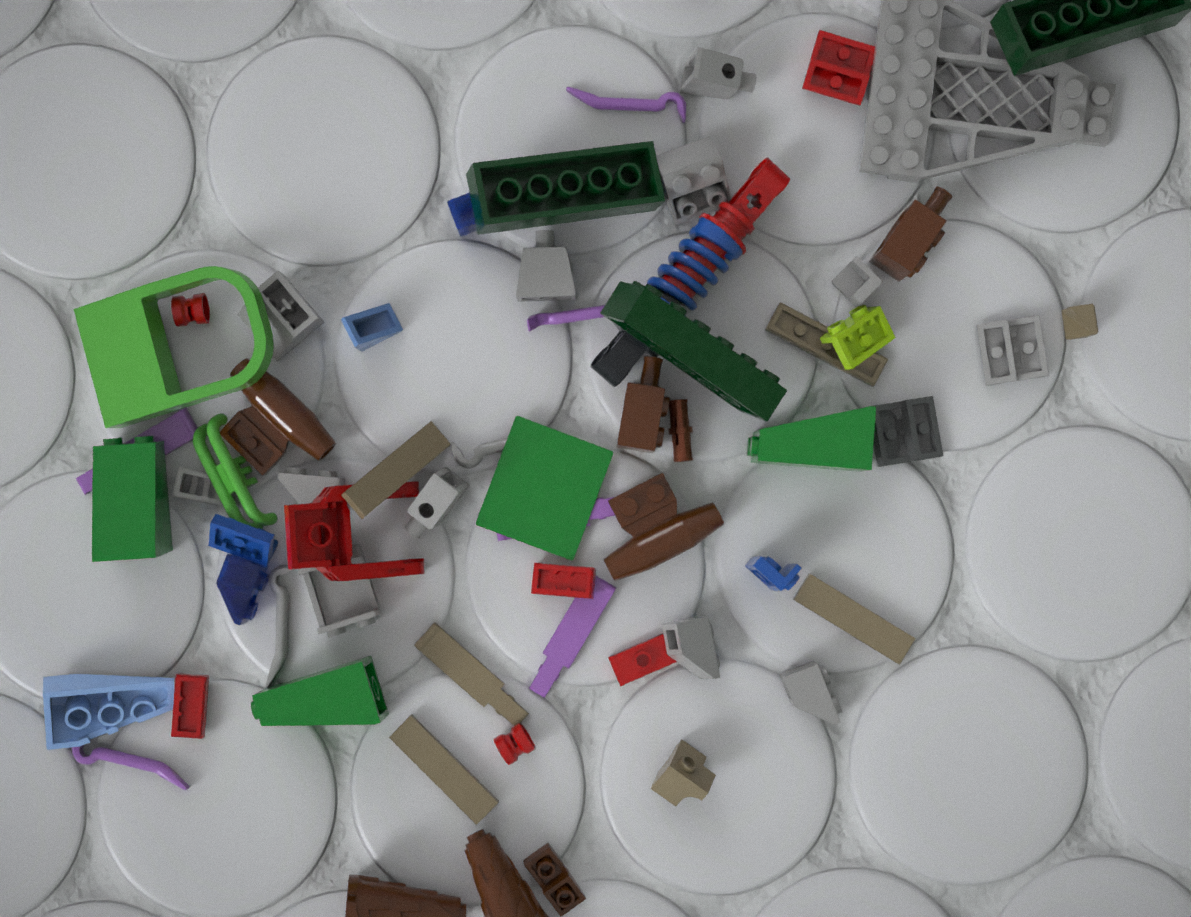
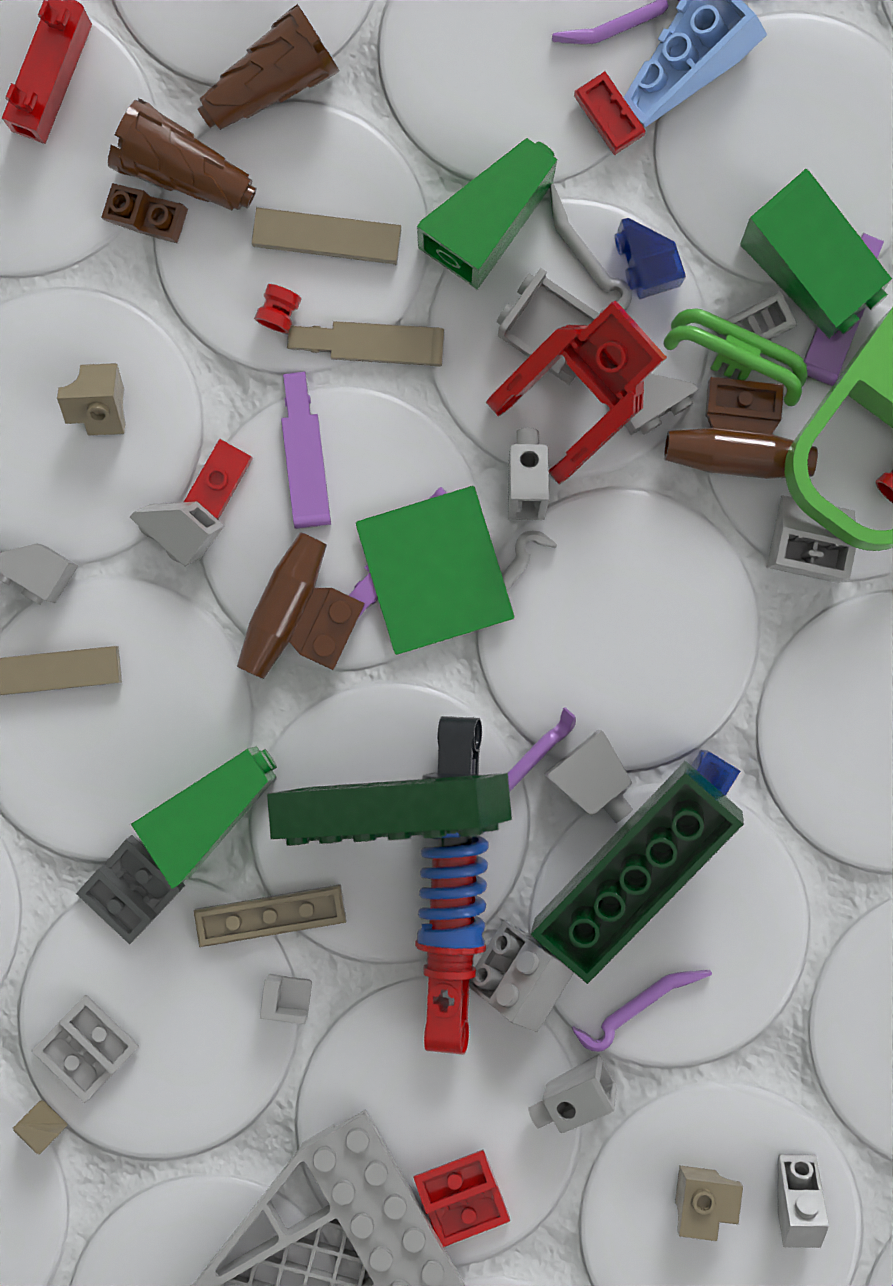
camera: 145 degrees right, 0 degrees up
(242, 540) = (681, 300): blue bracket -> none
(372, 326) = (718, 596): medium blue slope -> none
(395, 470) = (588, 476): dark tan tile -> none
(563, 580) = (348, 496): red plate -> none
(643, 409) = (395, 715): reddish brown brick -> none
(680, 430) = (347, 724): copper pin -> none
(768, 572) = (151, 652): blue bracket -> none
(859, 335) = (244, 948): lime bracket -> none
(911, 236) = (264, 1085): reddish brown brick -> none

